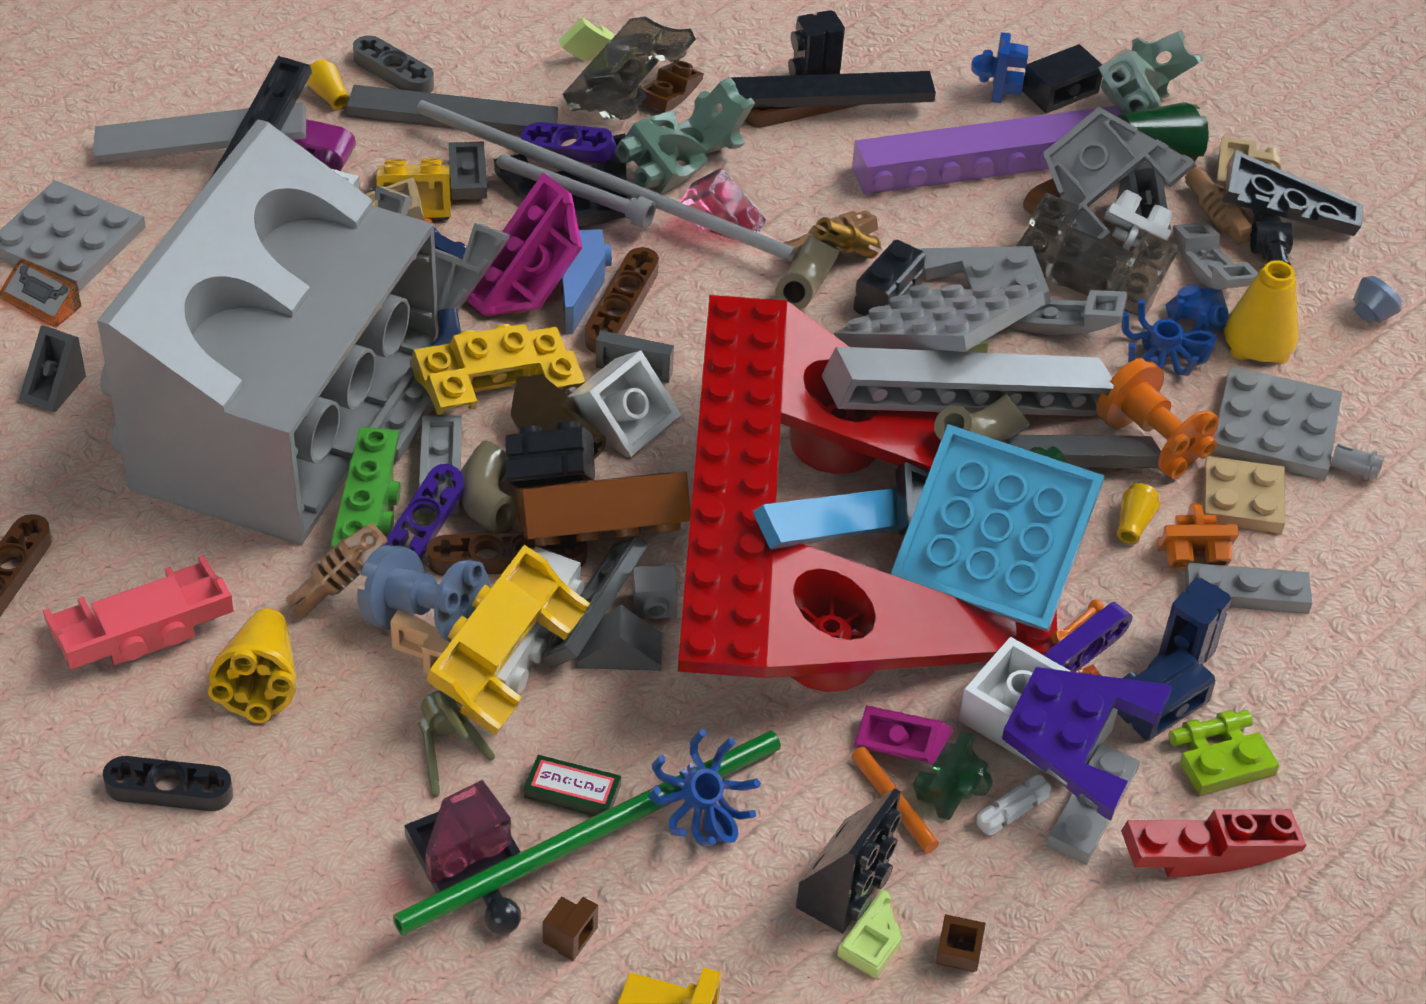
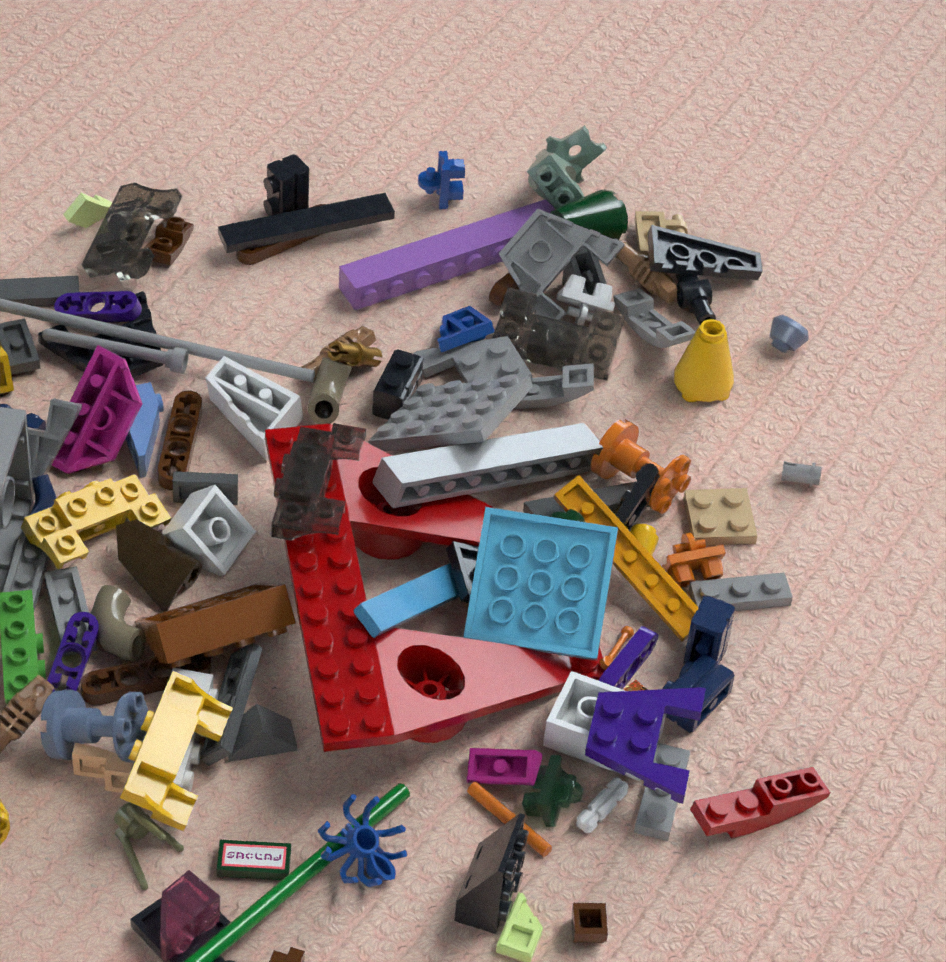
camera: 15 degrees left, 0 degrees up
(550, 455) = (162, 588): black brick -> none
(654, 591) = (277, 686): light grey plate -> none
(659, 148) = (212, 277): sand green hips -> none
(712, 265) = (252, 402): none -> white wedge
(724, 199) = (243, 337): clear pink slope -> none
(738, 355) = (305, 480): none -> clear smoke bracket
(982, 229) = (463, 327): none -> blue wing
(997, 421) = (513, 496): dark tan cylinder -> none
(1062, 78) = (494, 180): black brick -> none
(1120, 520) = (633, 559): none -> light orange plate
(1135, 460) = (636, 500): none -> black hinge
(1168, 337) = (633, 395): blue animal -> none
(1203, 300) = (653, 362): blue bracket -> none
(1226, 763) = (755, 739): lime plate -> none
(1277, 422) = (733, 451): light grey plate -> none

